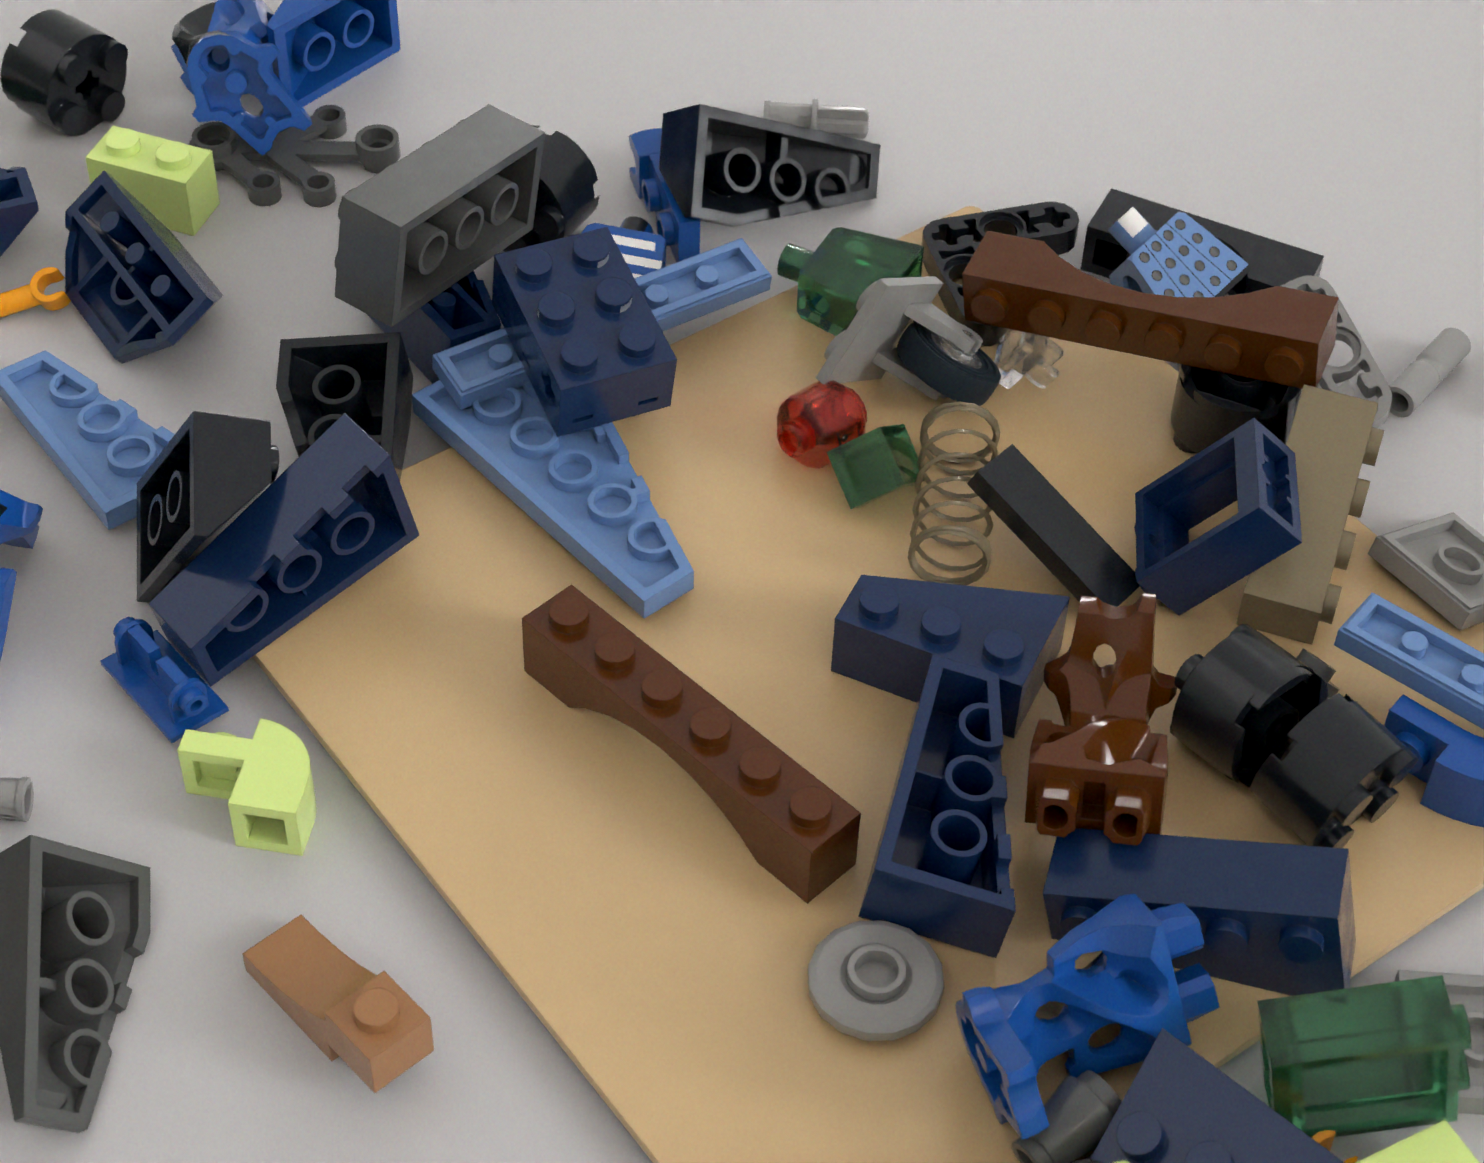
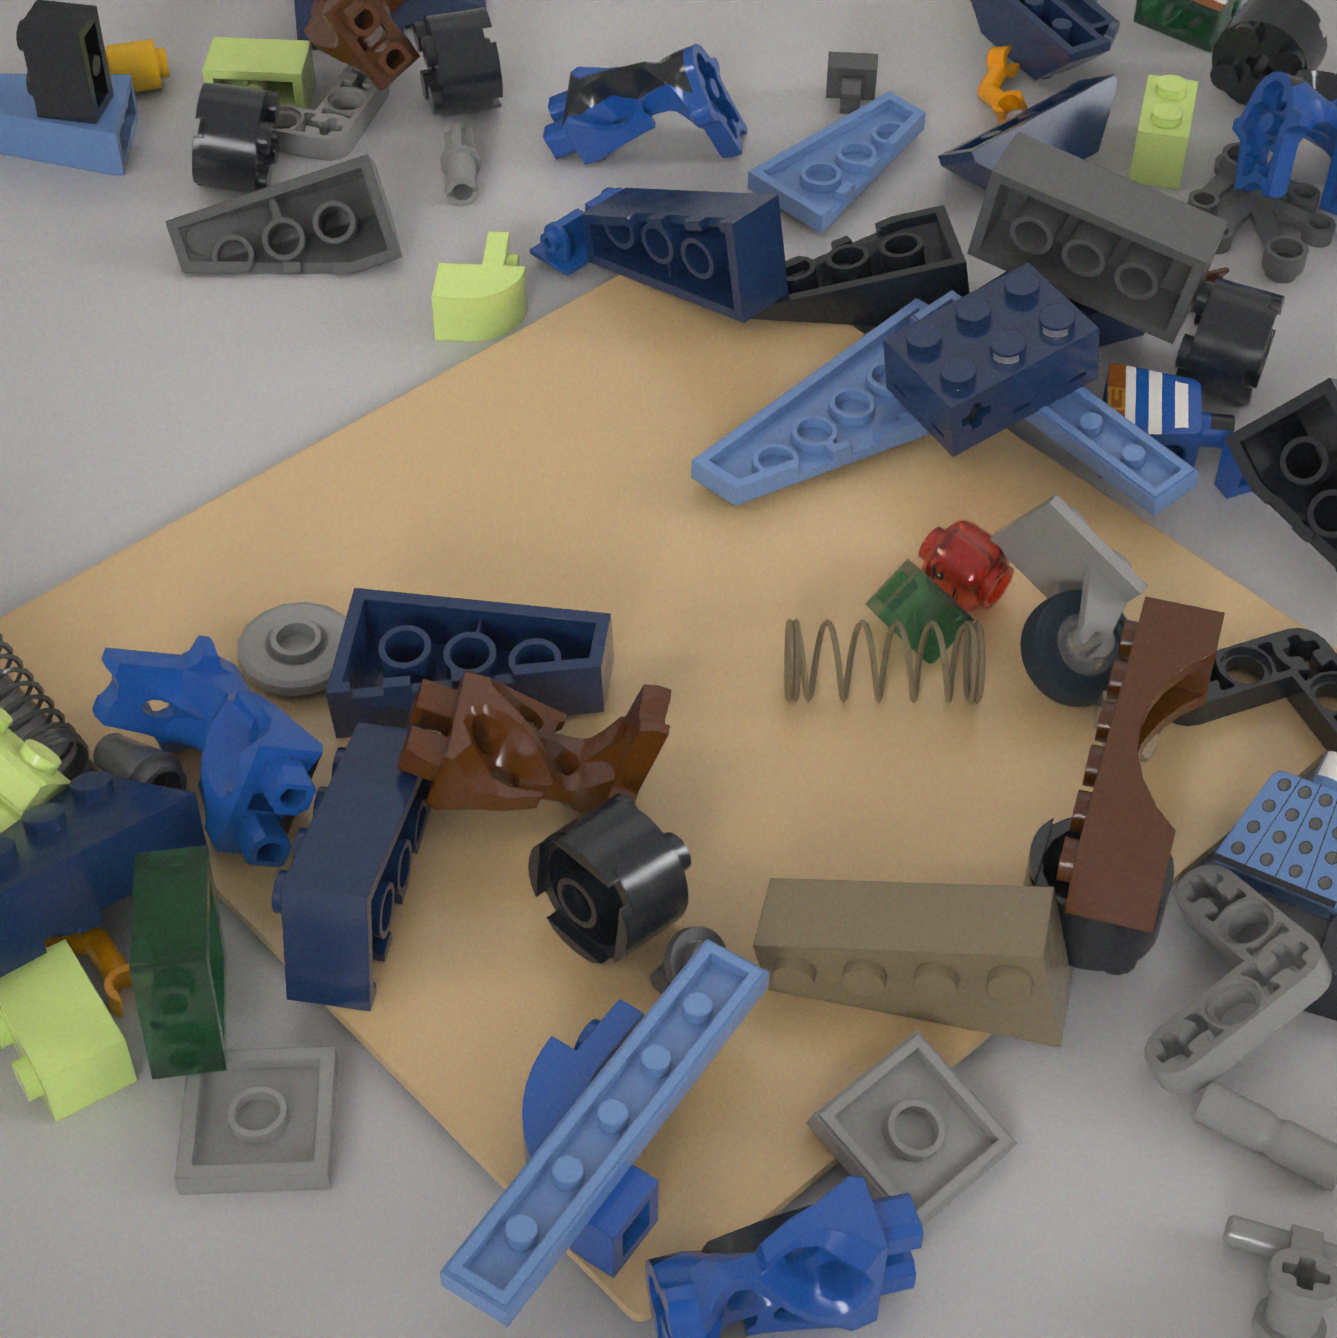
camera: 85 degrees right, 0 degrees up
(197, 491) = (714, 158): black slope -> none
(341, 1003) = (281, 364): medium nougat slope -> none
(777, 806) = (467, 544): reddish brown arch -> none
(841, 270) = (1192, 566): clear green torso -> none
(897, 624) = (678, 646): dark blue wedge -> none
(1053, 529) = (832, 731): black tile -> none
(1240, 467) = (862, 841): dark blue window -> none
(1333, 773) = (529, 950): black brick -> none

